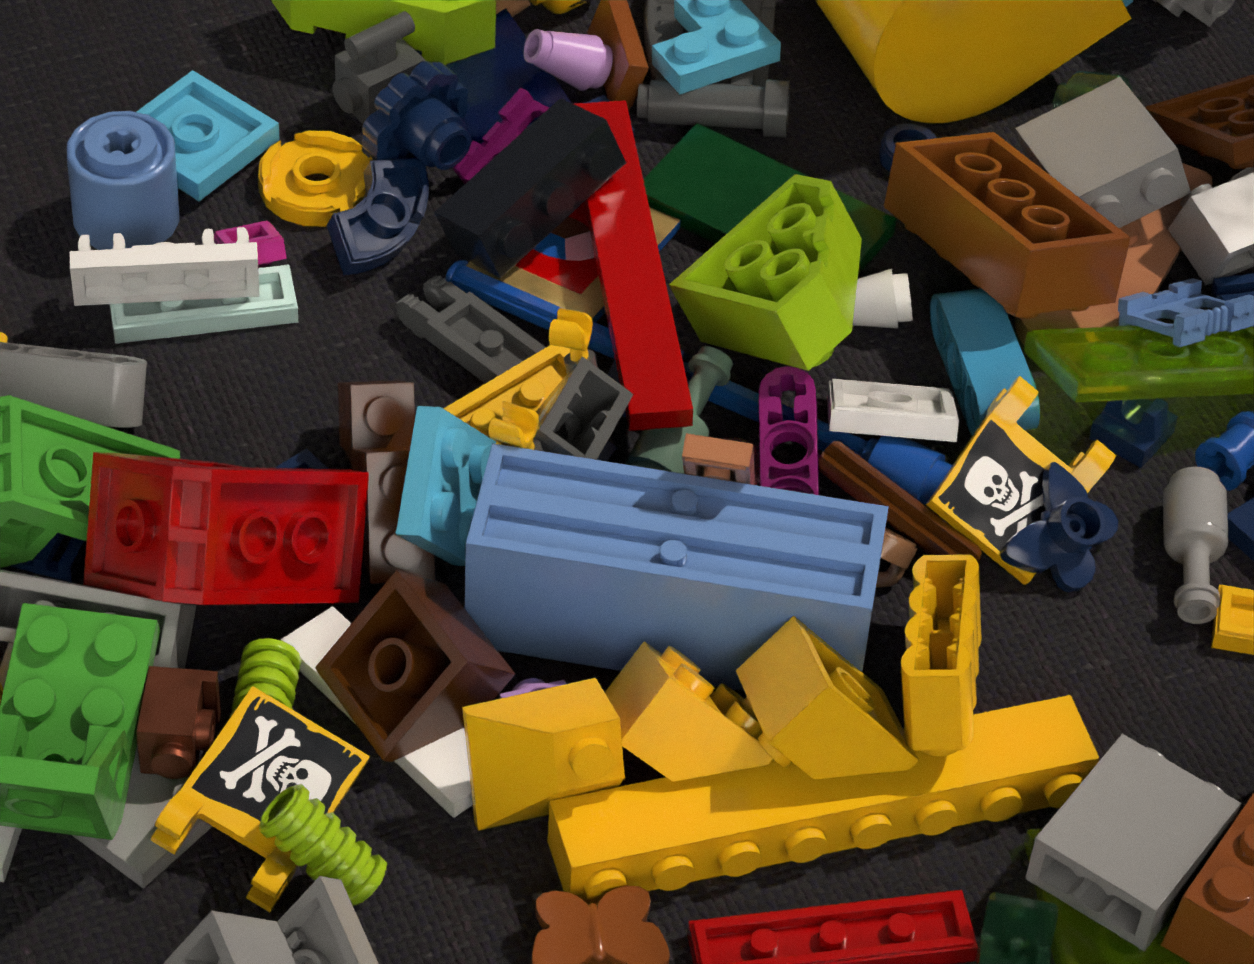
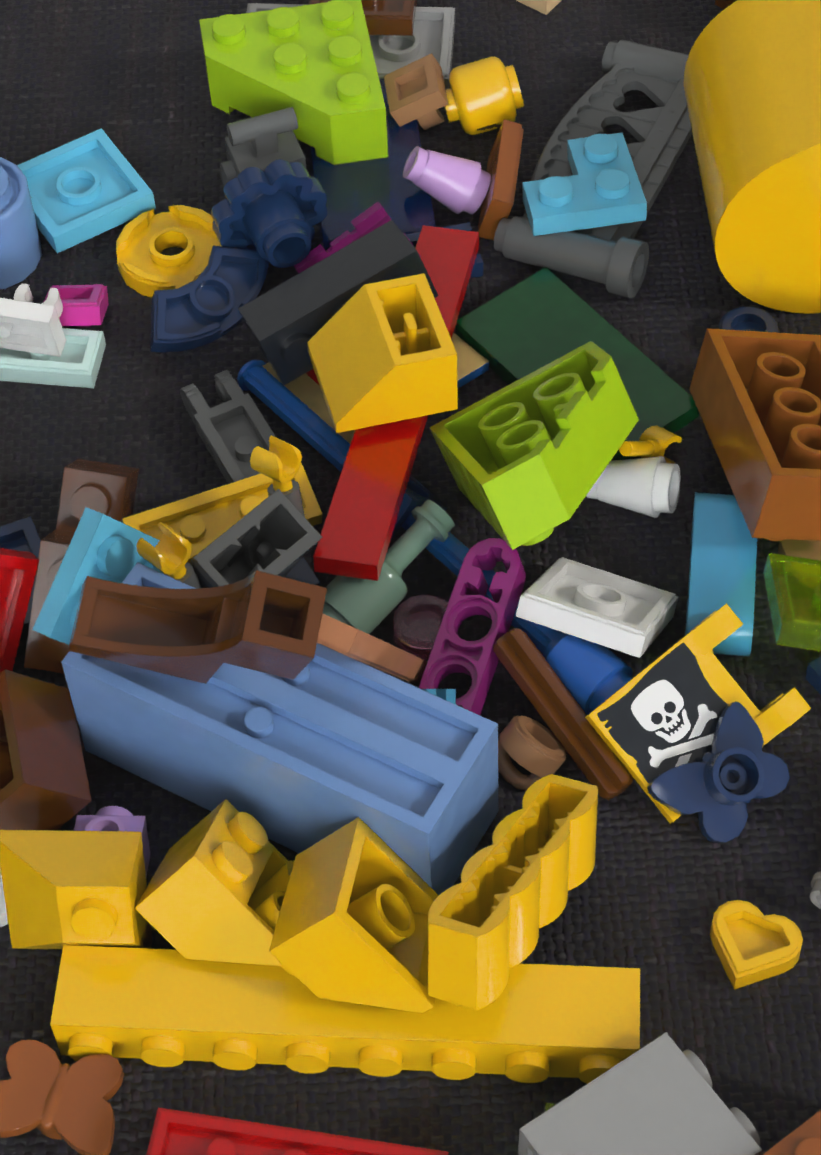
camera: 25 degrees right, 5 degrees up
(594, 484) = (189, 633): none -> reddish brown arch
(618, 221) = (386, 356): none -> yellow slope
(874, 259) = (651, 443): none -> yellow hand
(1142, 663) = (753, 944): none -> yellow tile

